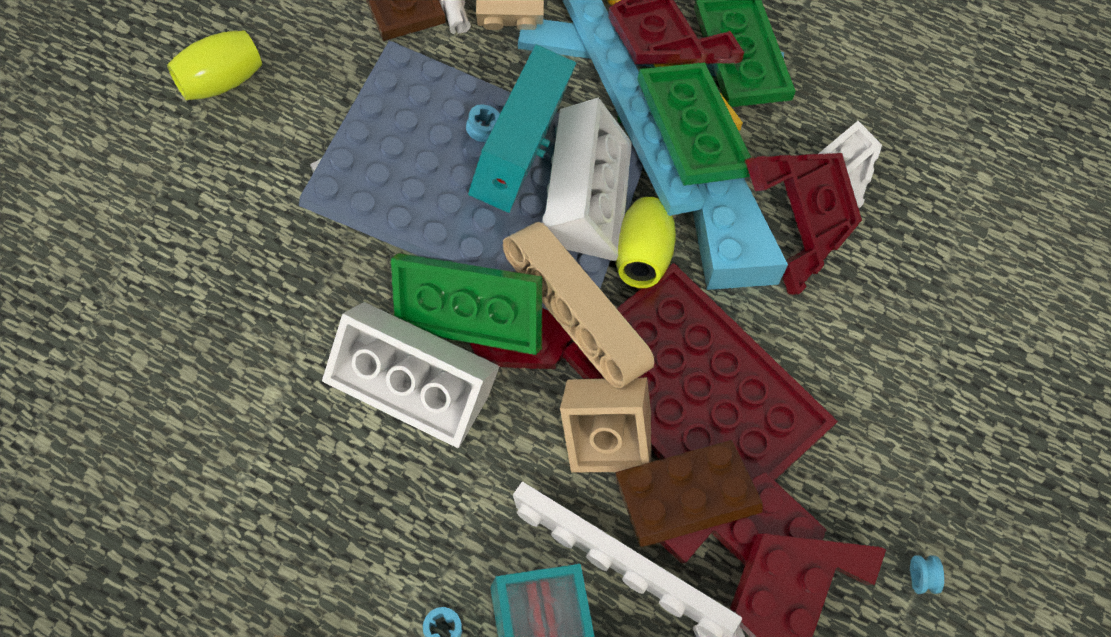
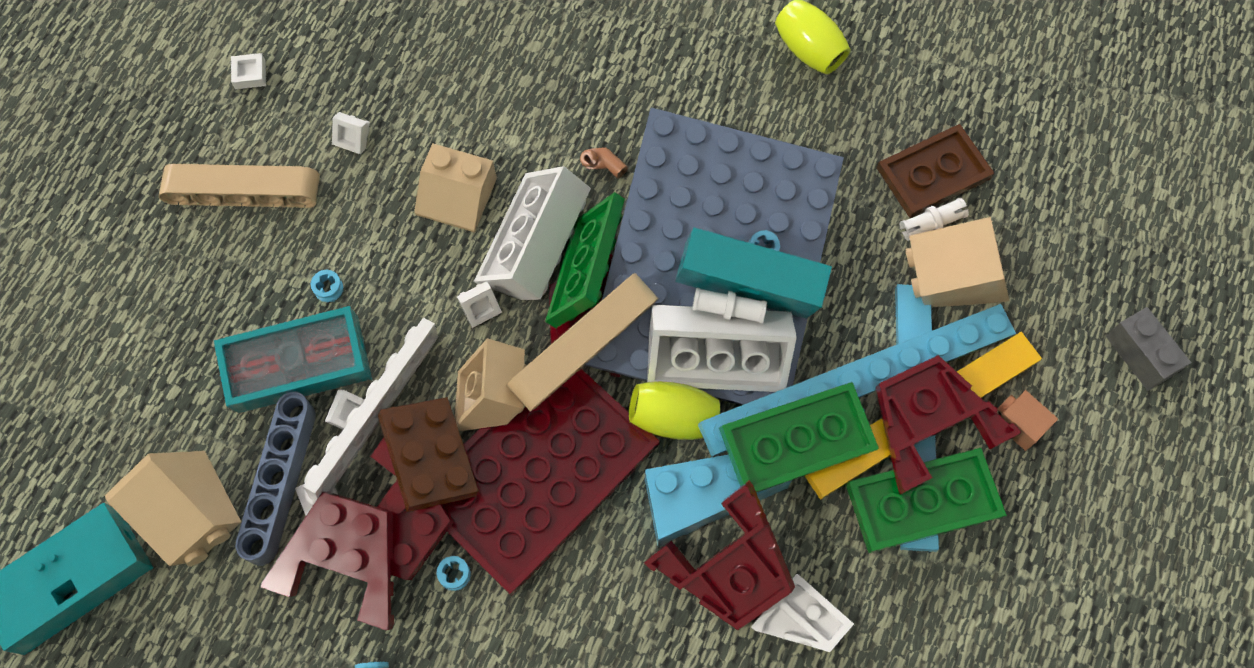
camera: 90 degrees right, 5 degrees up
(221, 591) = (350, 132): none -> white tile
(321, 291) = (603, 159): none -> nougat arm
(332, 458) = (454, 187): none -> tan slope
(494, 437) = (479, 304): none -> white tile
(557, 150) = (729, 305): none -> white pin
(618, 598) = (341, 407): none -> white plate
(823, 480) = (444, 579): none -> medium azure bush

